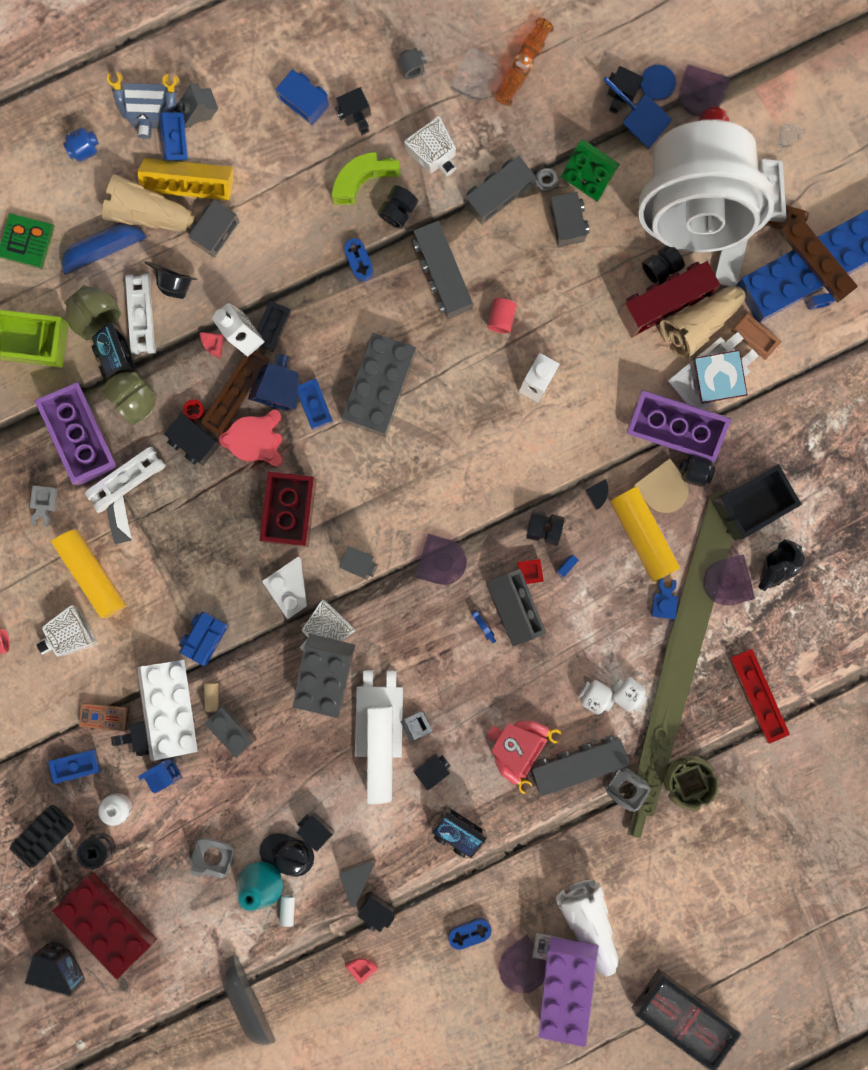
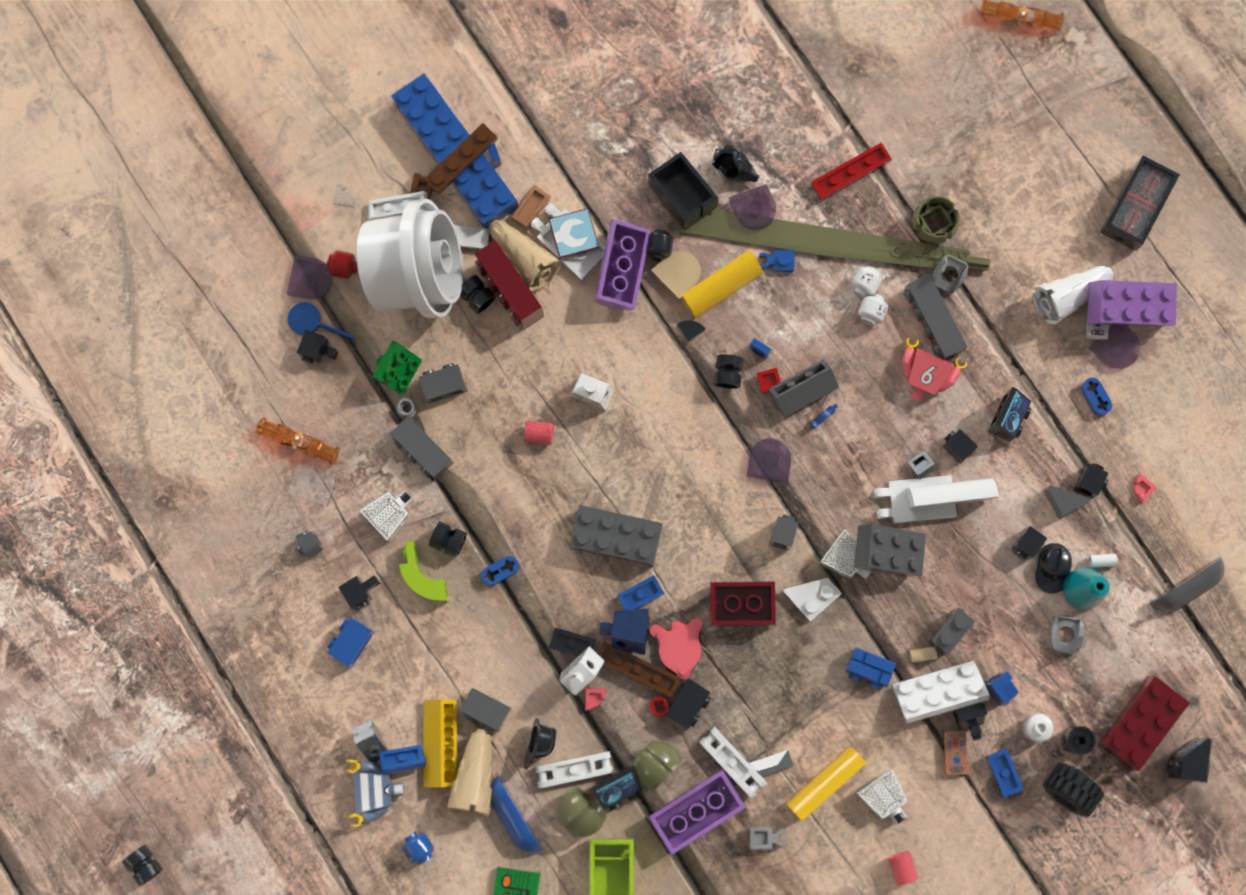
camera: 95 degrees left, 5 degrees down
(443, 270) = (502, 491): dark grey brick -> none
(646, 118) = (340, 324): blue piece -> none

